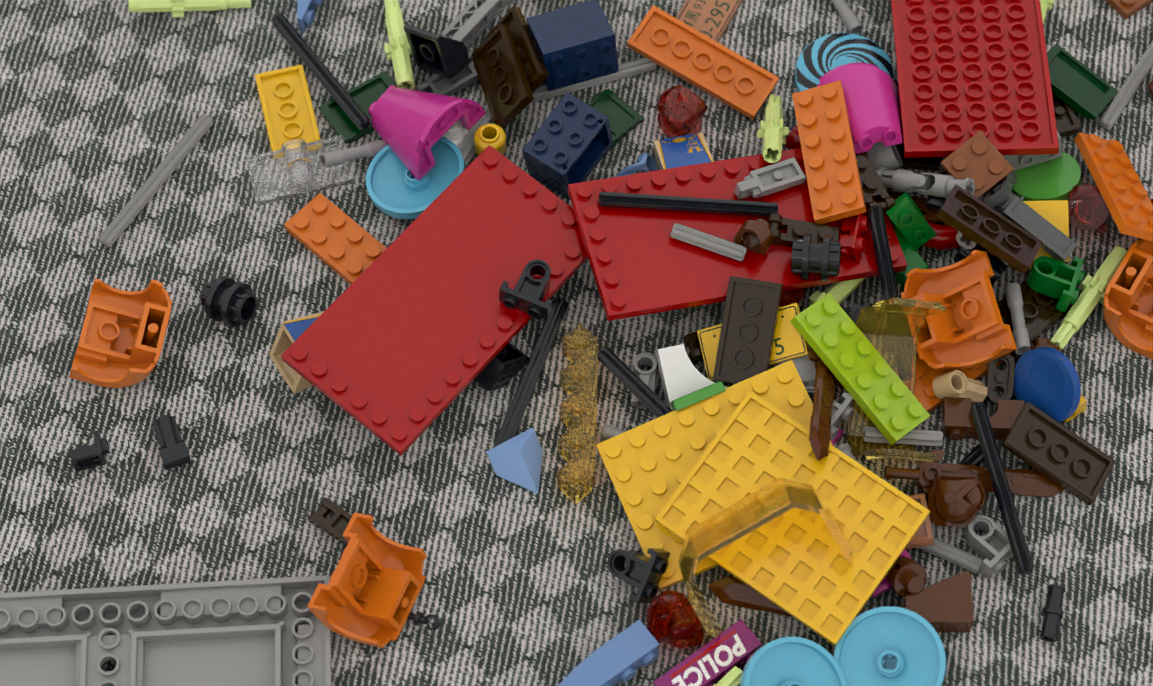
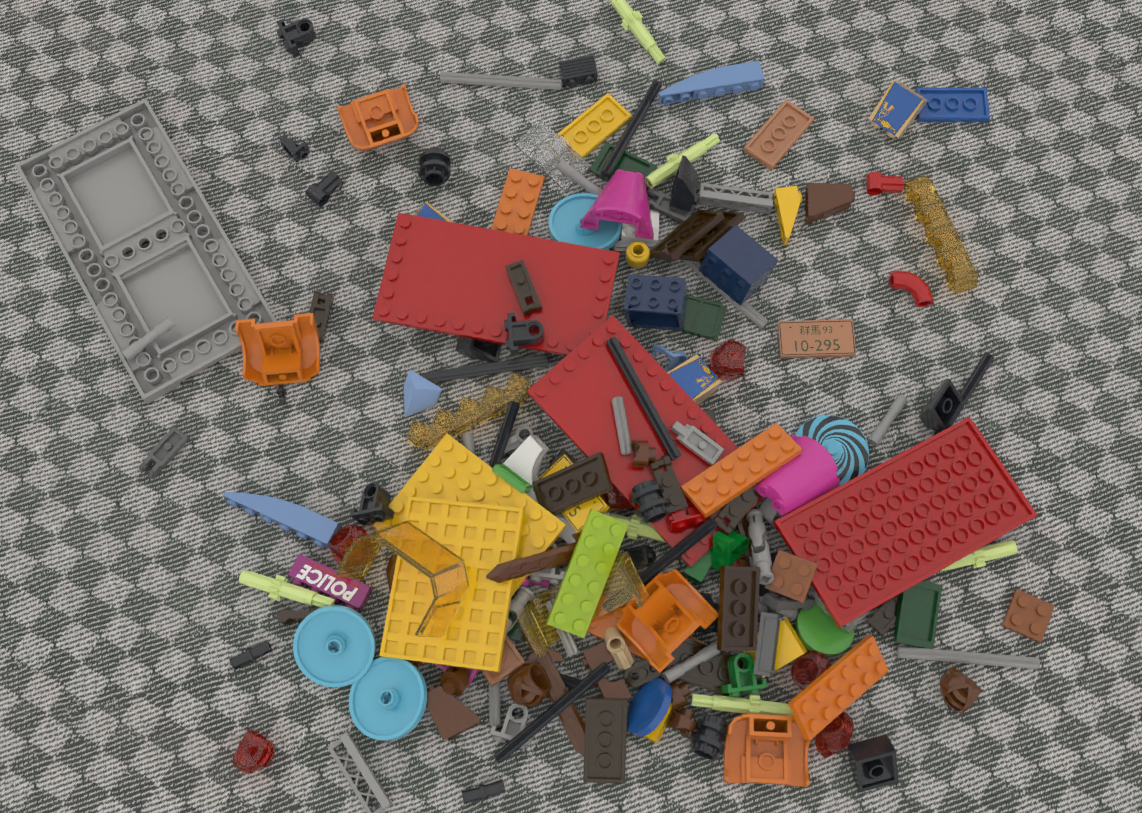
camera: 60 degrees right, 10 degrees up
(205, 90) = (578, 71): none -> black brick
(471, 263) = (523, 286): none -> dark brown plate
(703, 62) = (779, 354): orange plate -> none
(773, 130) = (742, 426): yellowish green piece -> none
(1079, 361) = (683, 722): none -> reddish brown piece
(1112, 349) = (709, 738): none -> black piece

